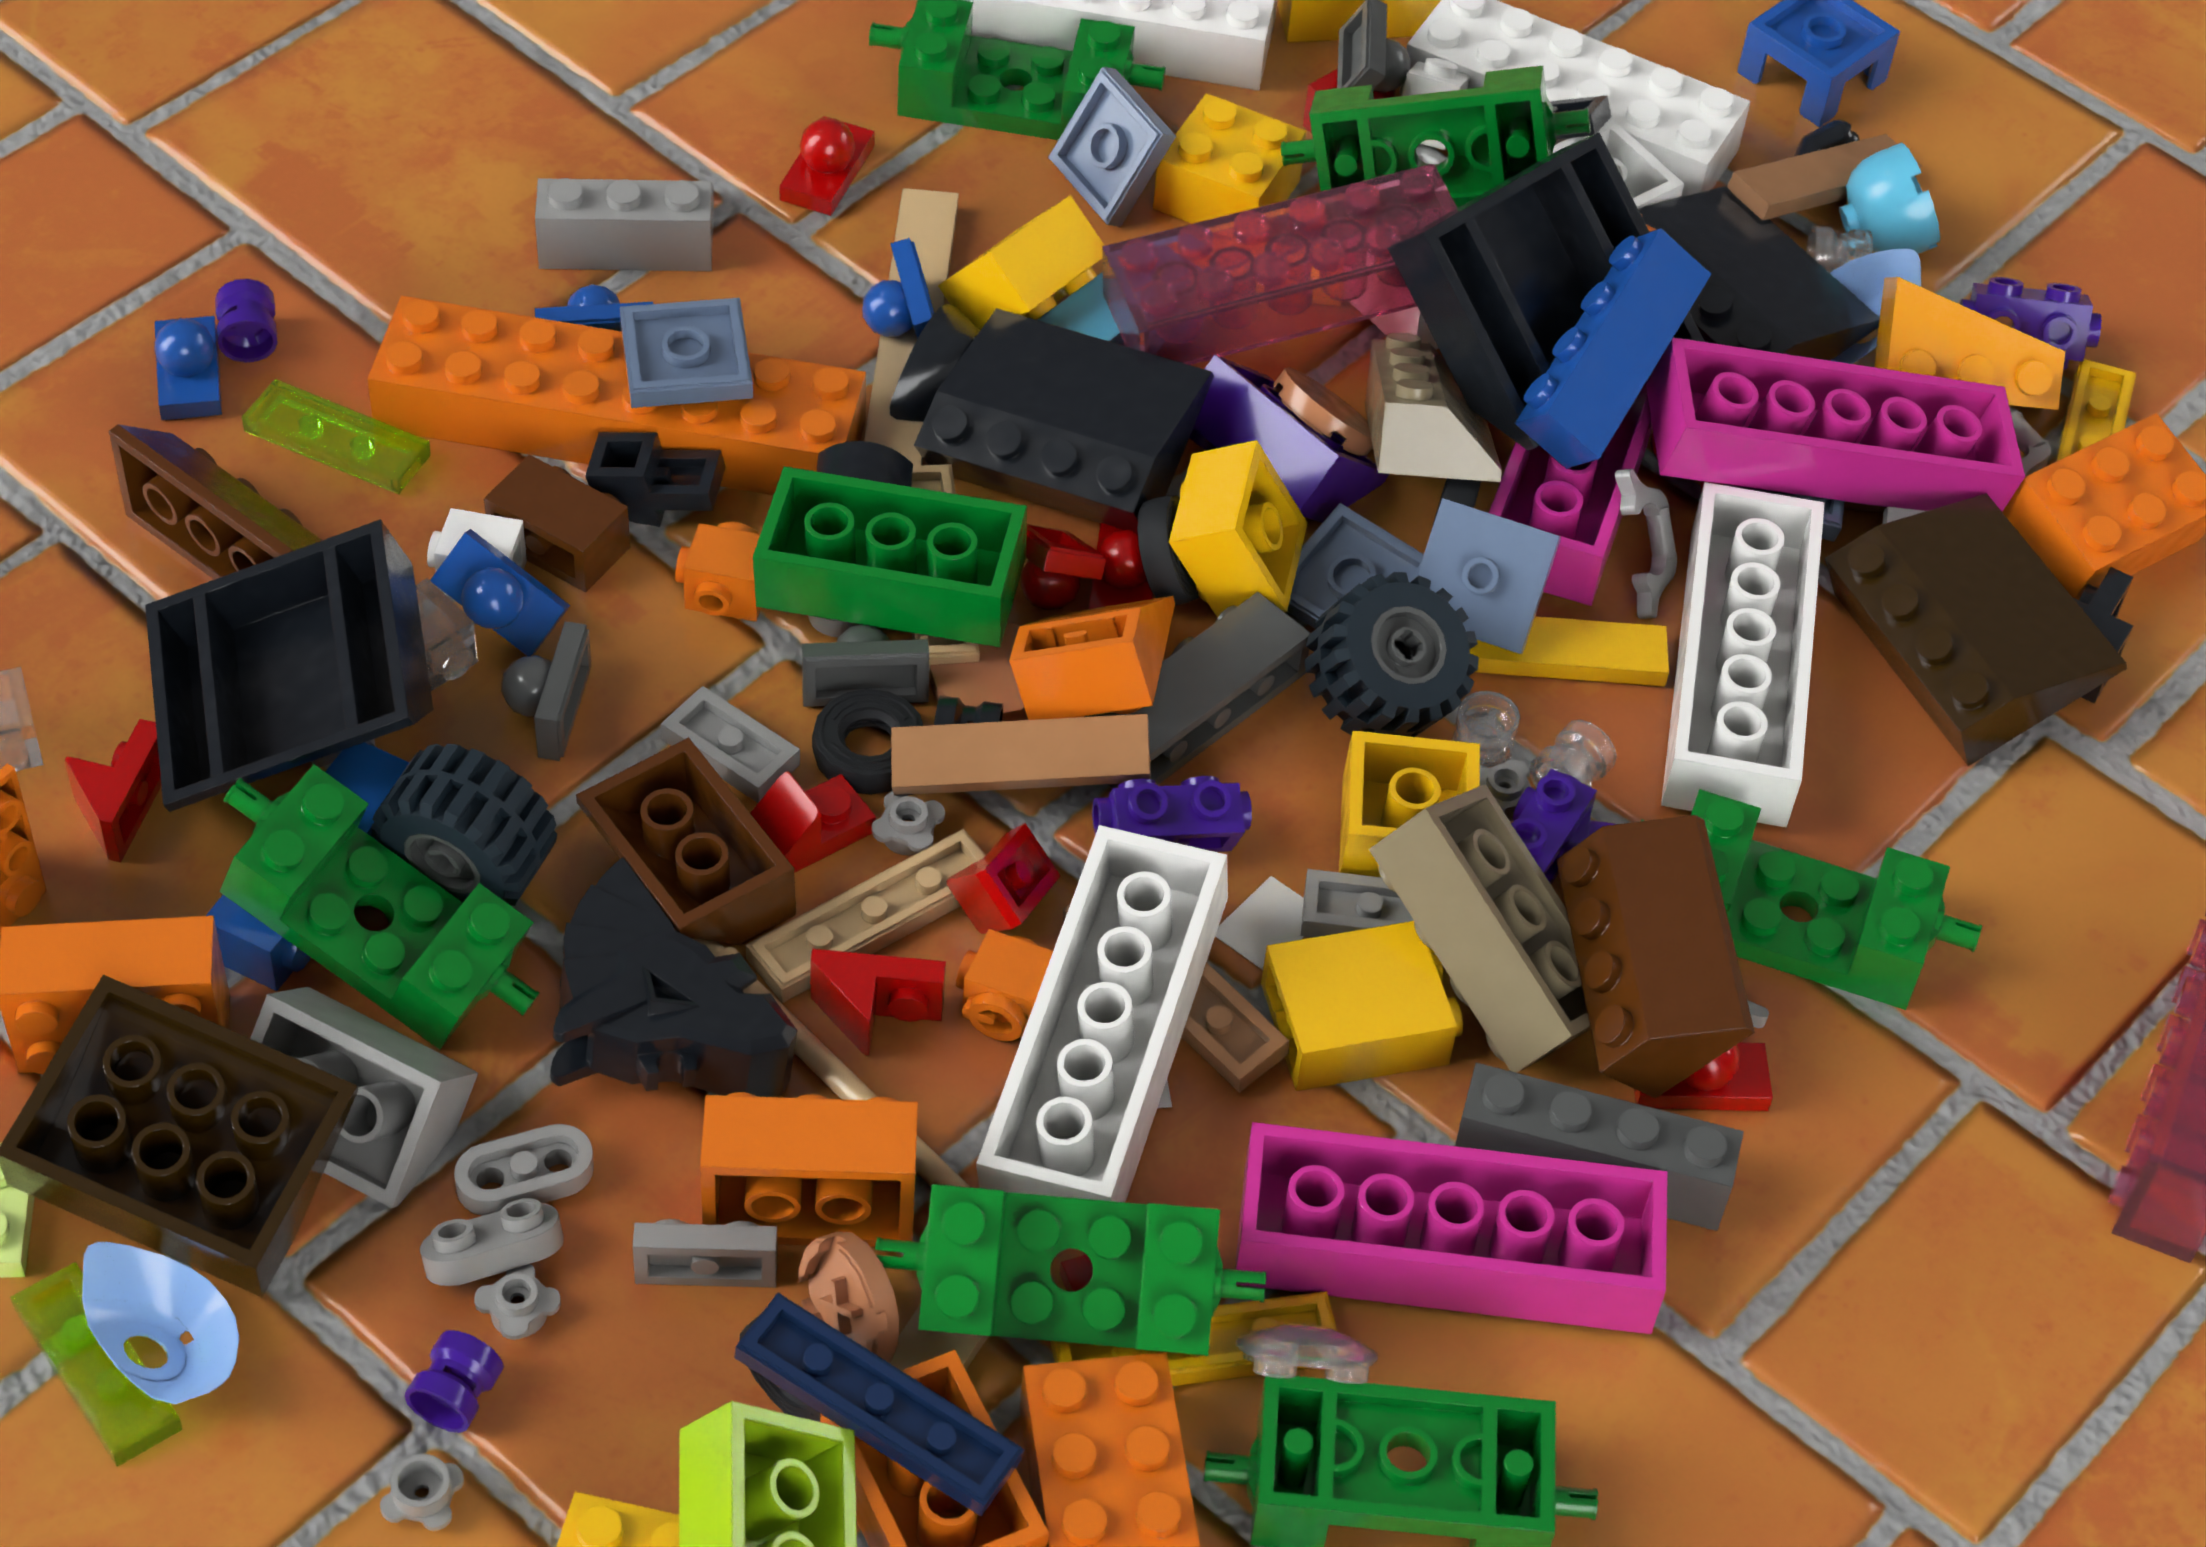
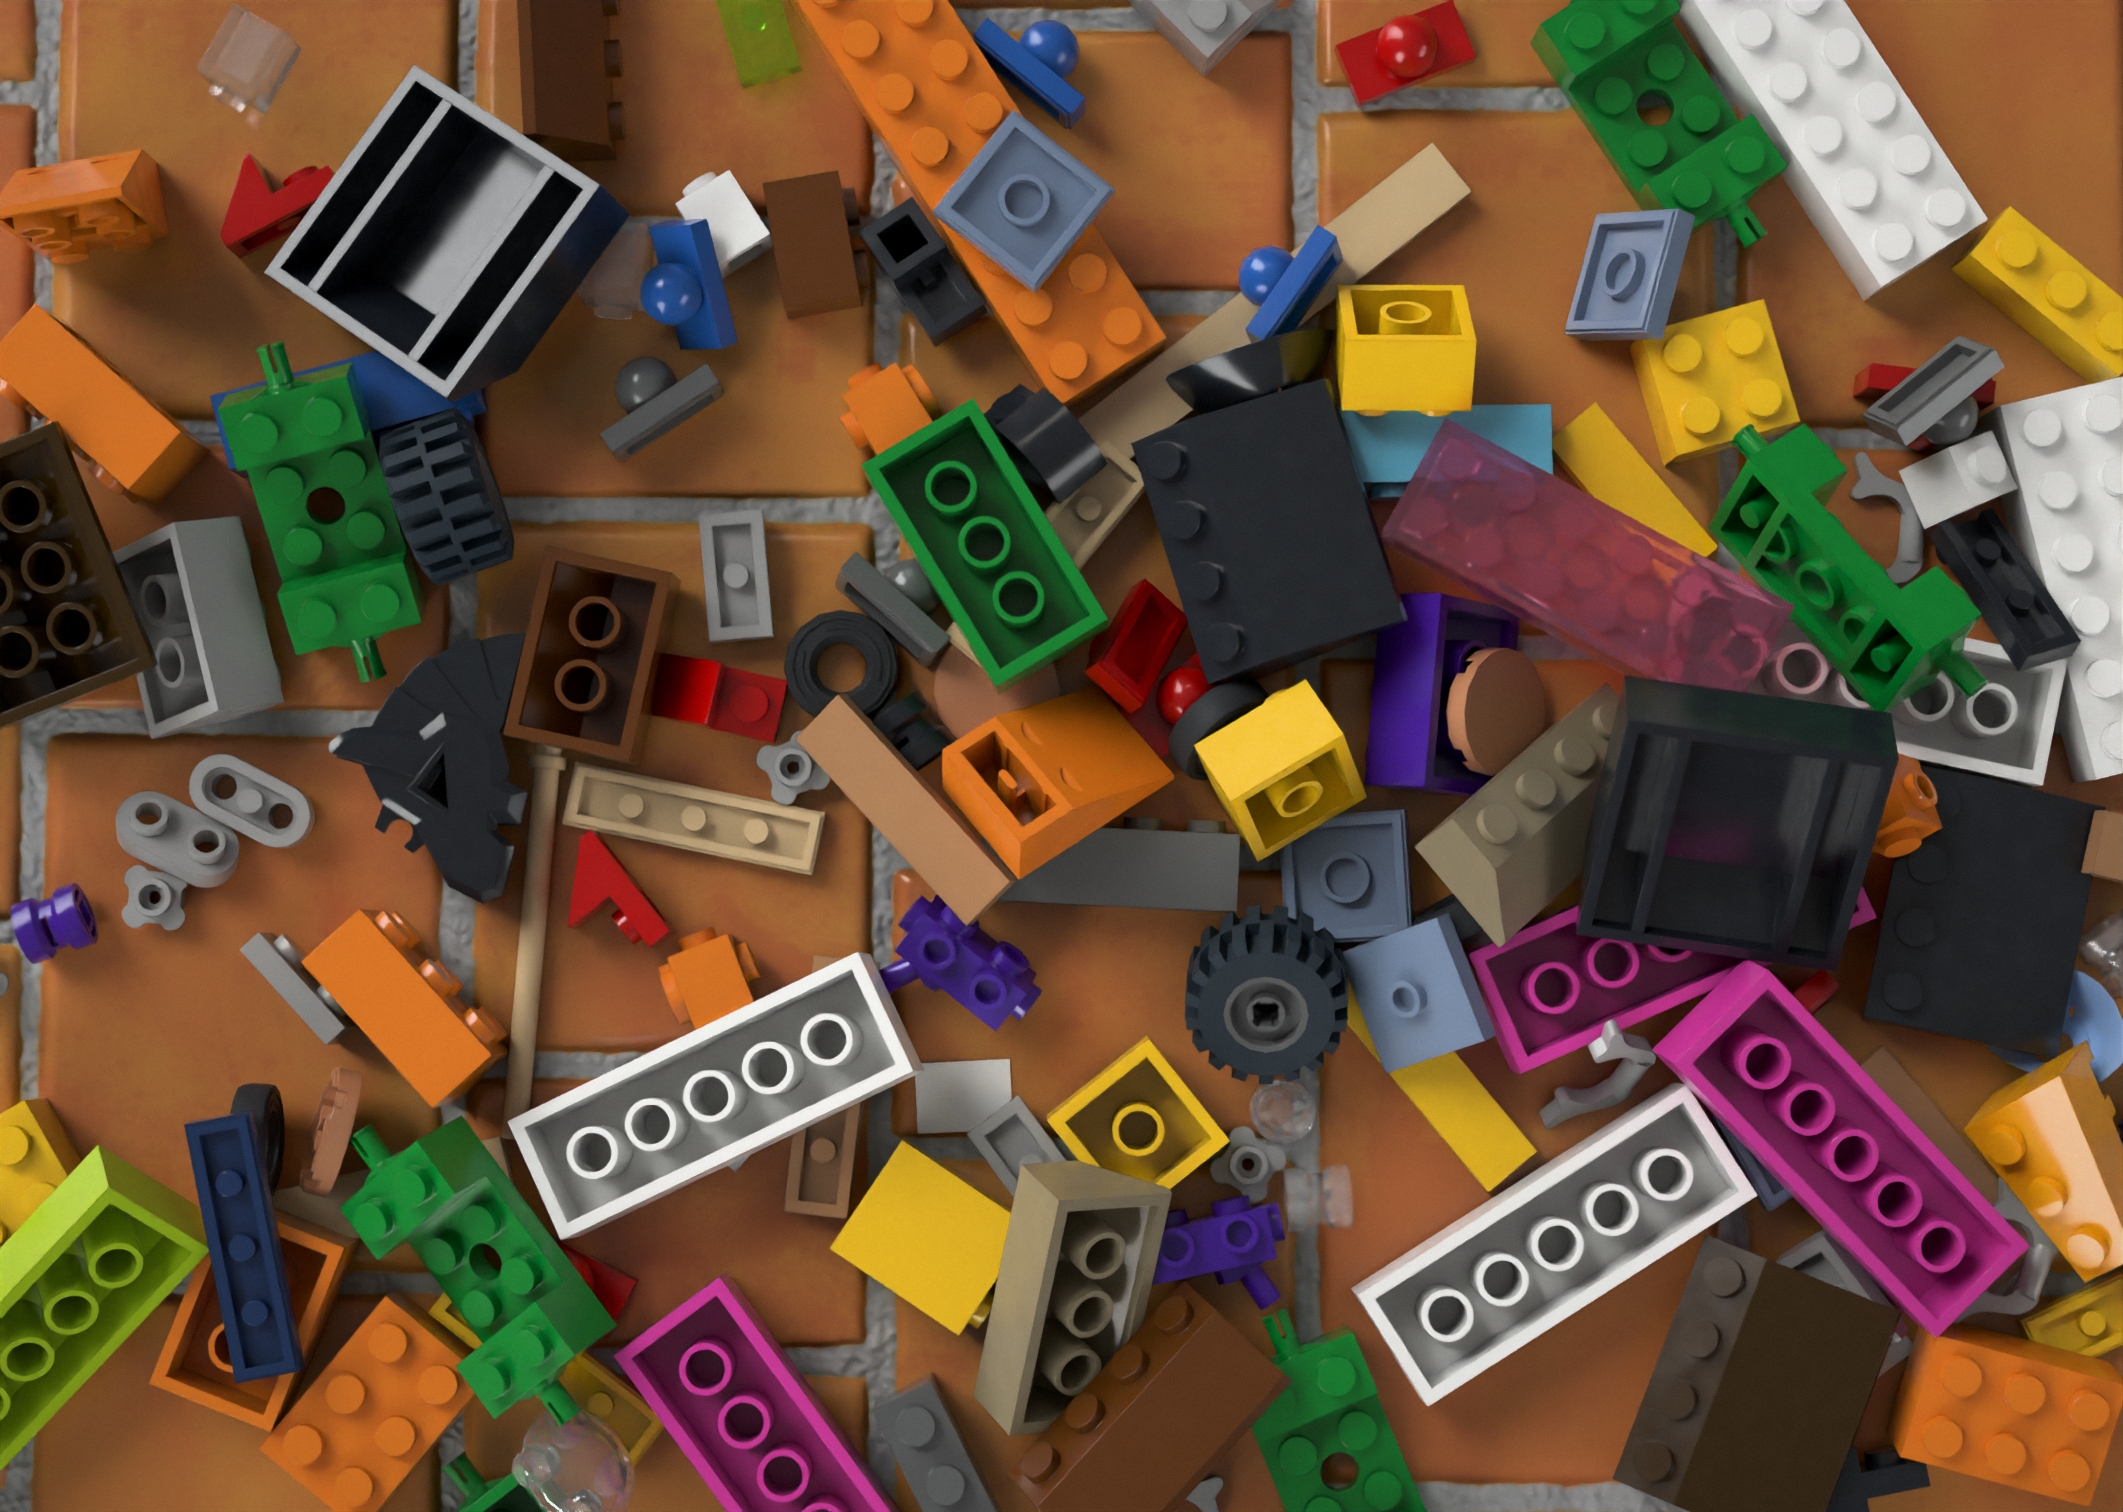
camera: 45 degrees right, 35 degrees up
(1005, 883) = (793, 904): red slope -> none
(1612, 348) = (1715, 930): blue brick -> none

